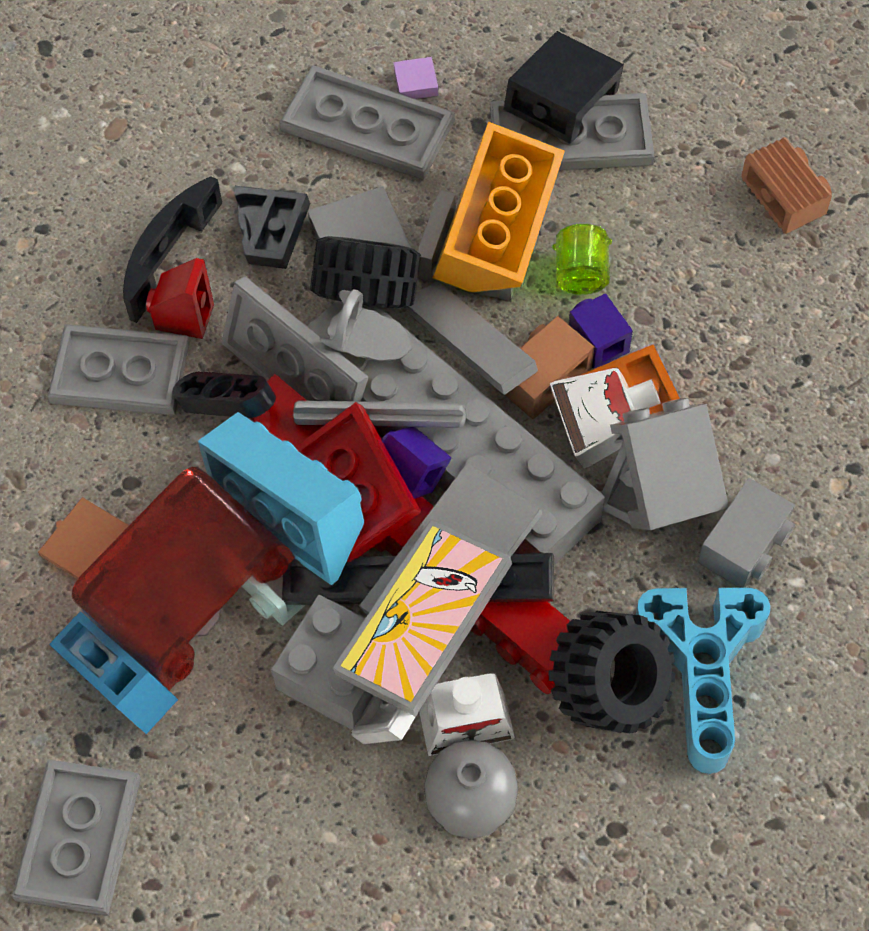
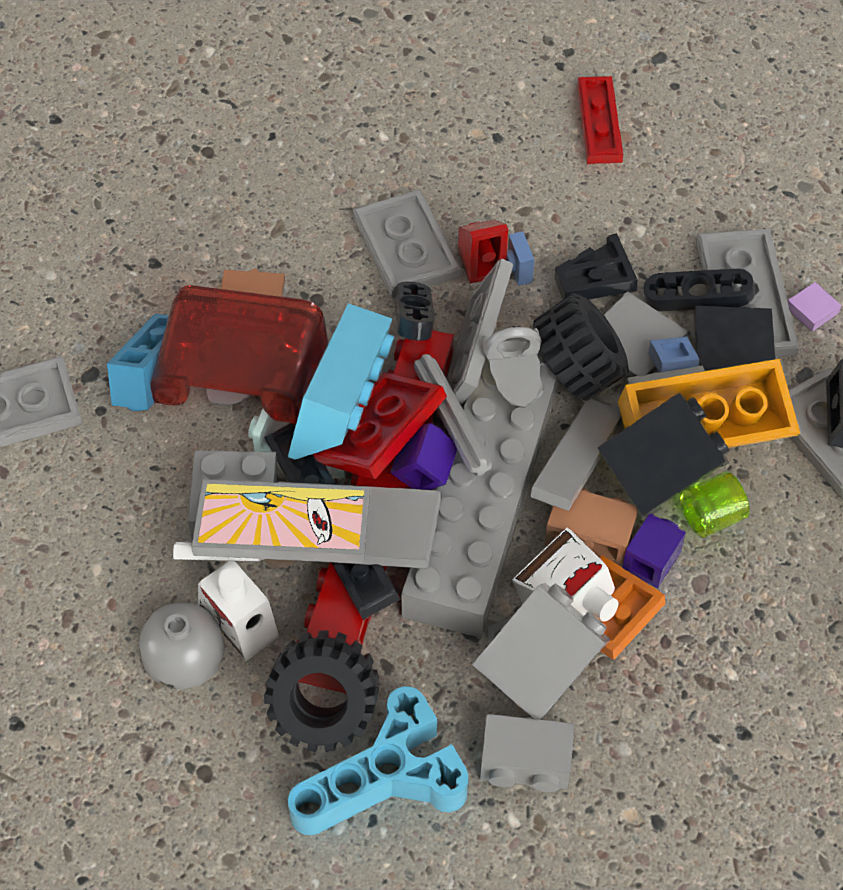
camera: 60 degrees right, 5 degrees down
(86, 132) = (599, 120): none -> red tile
(190, 208) = (535, 207): black slope -> none
(221, 277) = (522, 258): none -> medium blue plate
(372, 135) = (686, 279): none -> black beam
(410, 207) = (673, 354): none -> medium blue plate
(422, 154) = (733, 336): none -> black tile
(531, 262) = (664, 453): none -> black panel

